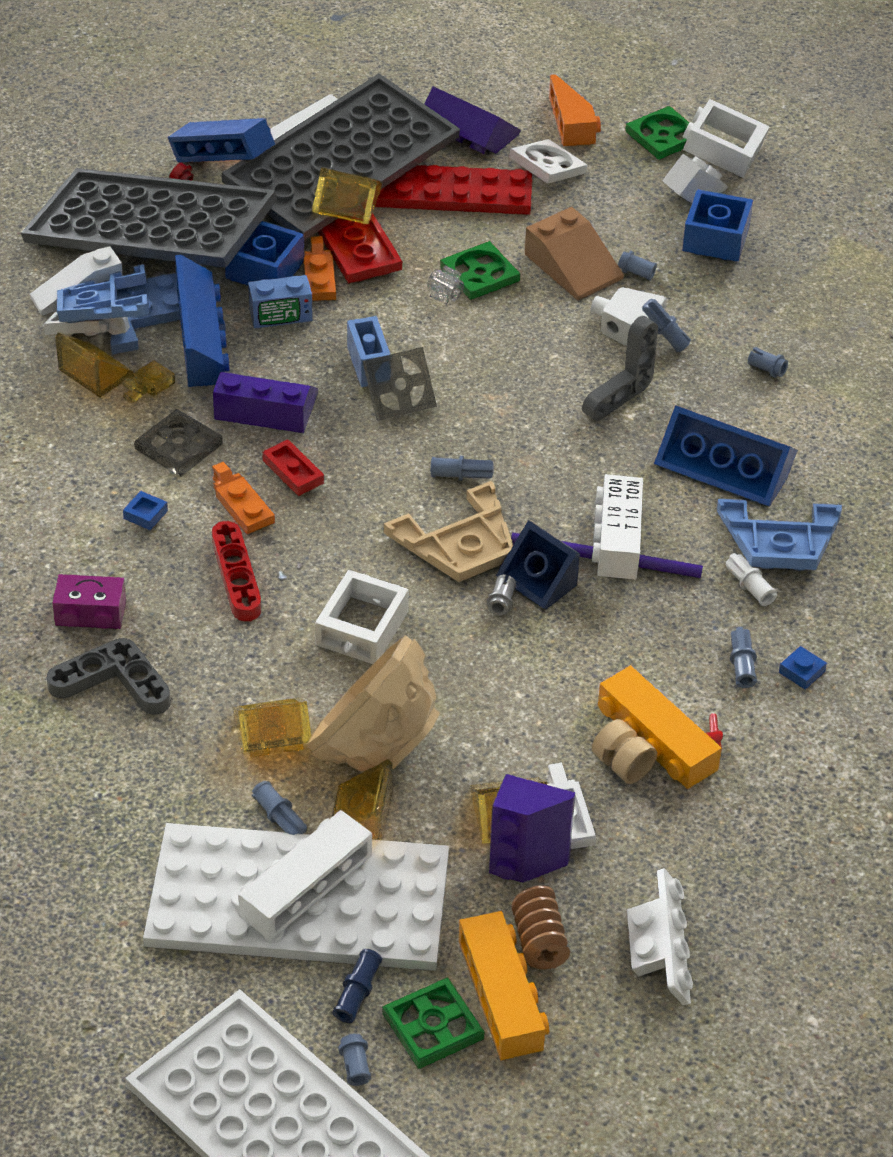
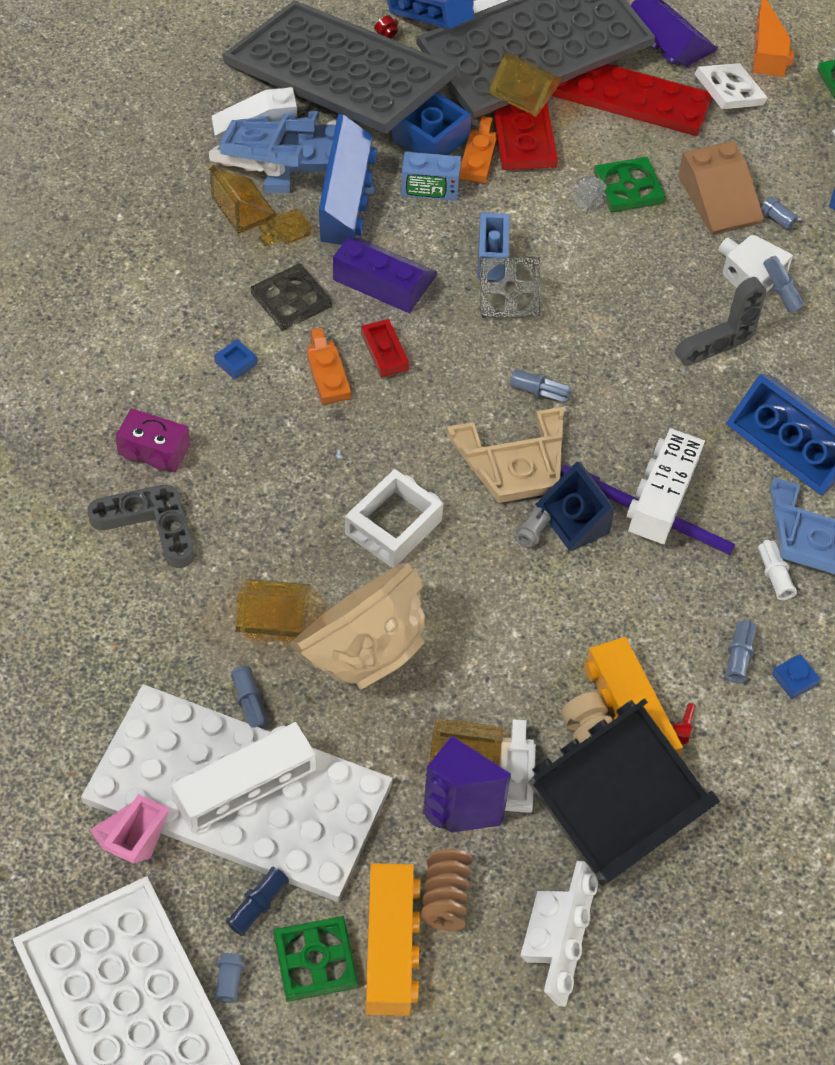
camera: 15 degrees right, 10 degrees up
(209, 949) = (132, 830): none -> bright pink slope
(236, 570) = (297, 440): red beam -> none
(368, 798) = (330, 714): clear yellow slope -> none
(676, 799) = (620, 791): none -> black panel

